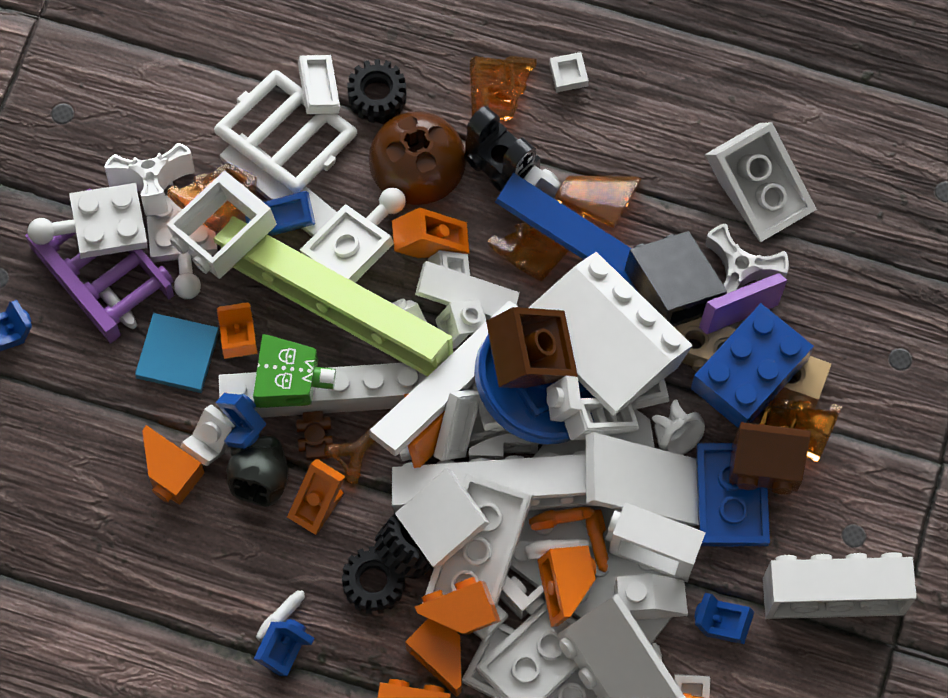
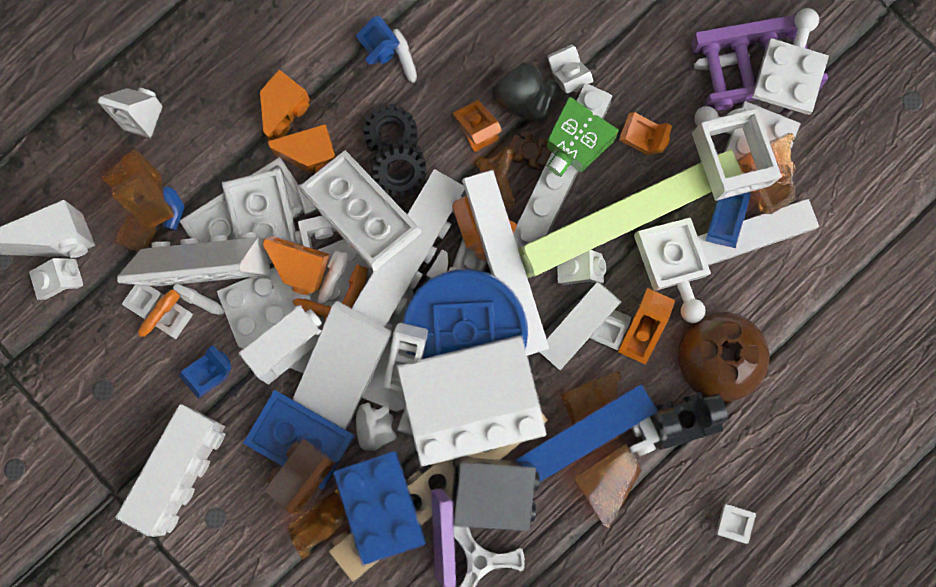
camera: 125 degrees right, 10 degrees up
(151, 175) = (814, 133): white piece -> none
(169, 467) = (564, 28): orange slope -> none
(177, 353) = (654, 85): dark azure tile -> none
(242, 414) = (556, 93): blue bracket -> none
(272, 166) = (775, 232): white bar -> none
(318, 84) = (831, 309): white tile -> none
(371, 74) = (819, 350): black tyre -> none
(442, 518) = (395, 192): white tile -> none
(457, 425) = (466, 247): white tile -> none
(461, 320) = (556, 308): white bracket -> none
(462, 610) = (317, 169): orange slope -> none
(499, 83) = (754, 458): clear orange slope -> none
(530, 347) = (484, 326): reddish brown slope -> none
(564, 398) = (431, 331): white plate -> none
(652, 596) = (249, 318): white slope -> none

